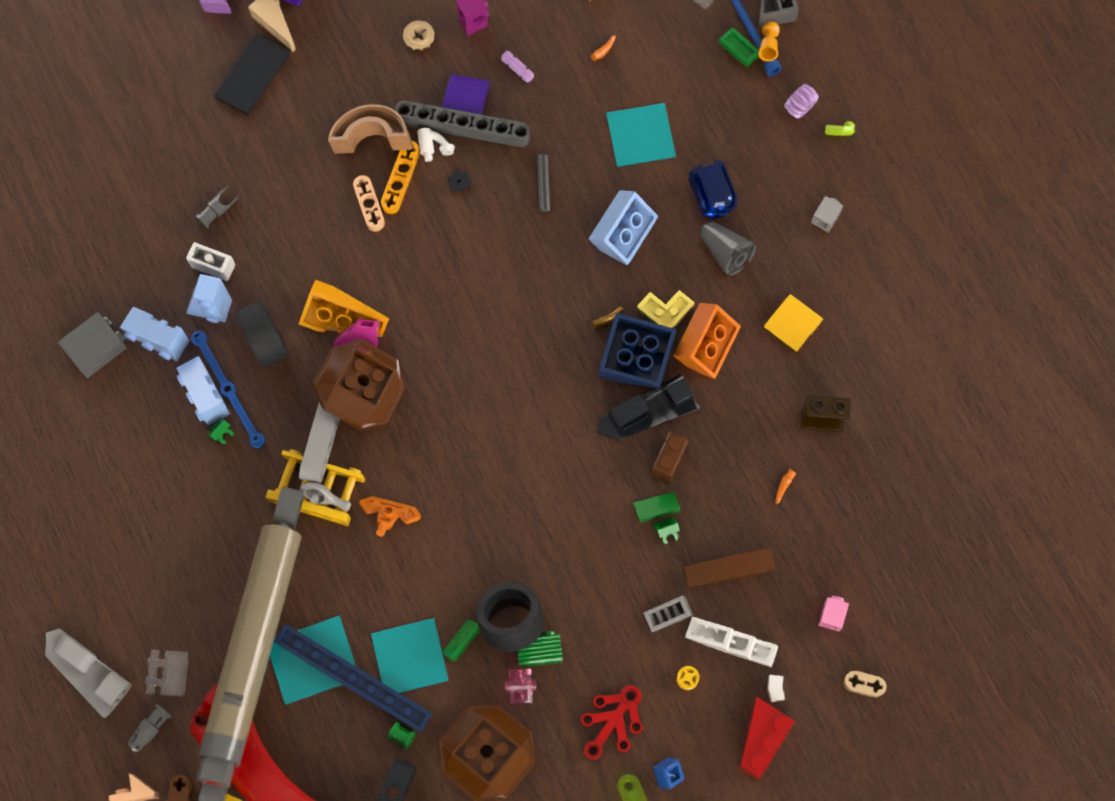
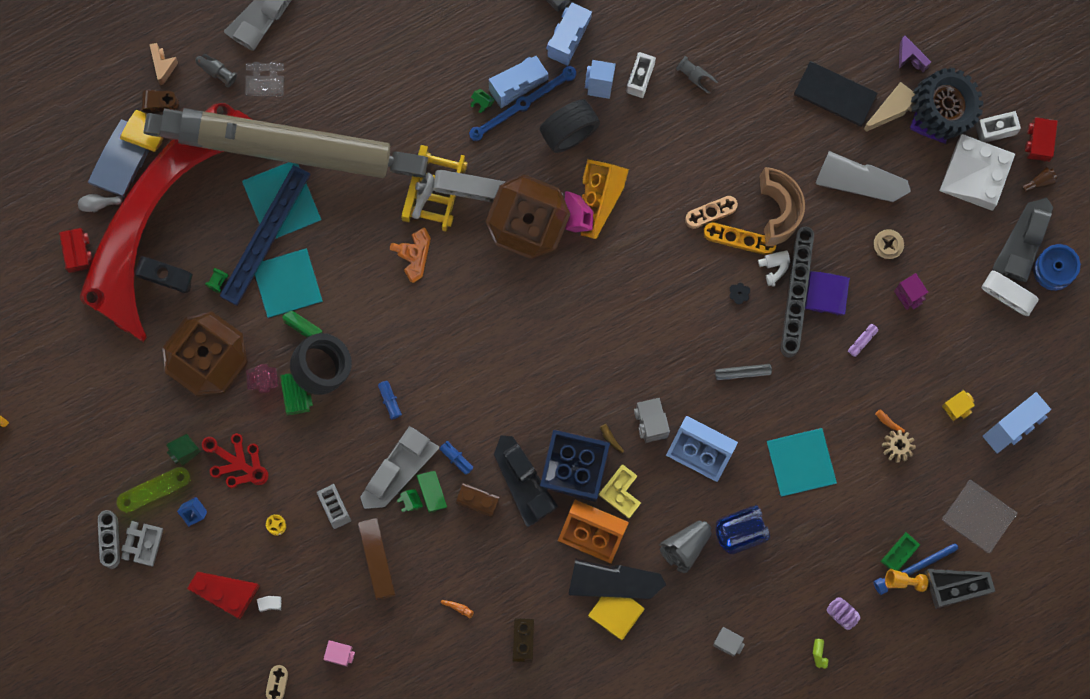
camera: 80 degrees right, 5 degrees up
(347, 55) = (860, 179): none -> light grey panel
(552, 547) = (389, 400): none -> blue axle
(593, 272) = (653, 421): none -> light grey brick
(599, 779) = (182, 449): none -> dark green slope
(621, 478) = (456, 458): none -> blue axle
(630, 33) = (893, 450): none -> tan gear
(634, 545) = (397, 470): none -> light grey panel
(731, 641) = (310, 563): white slope -> none
(761, 324) = (613, 581): none -> black panel

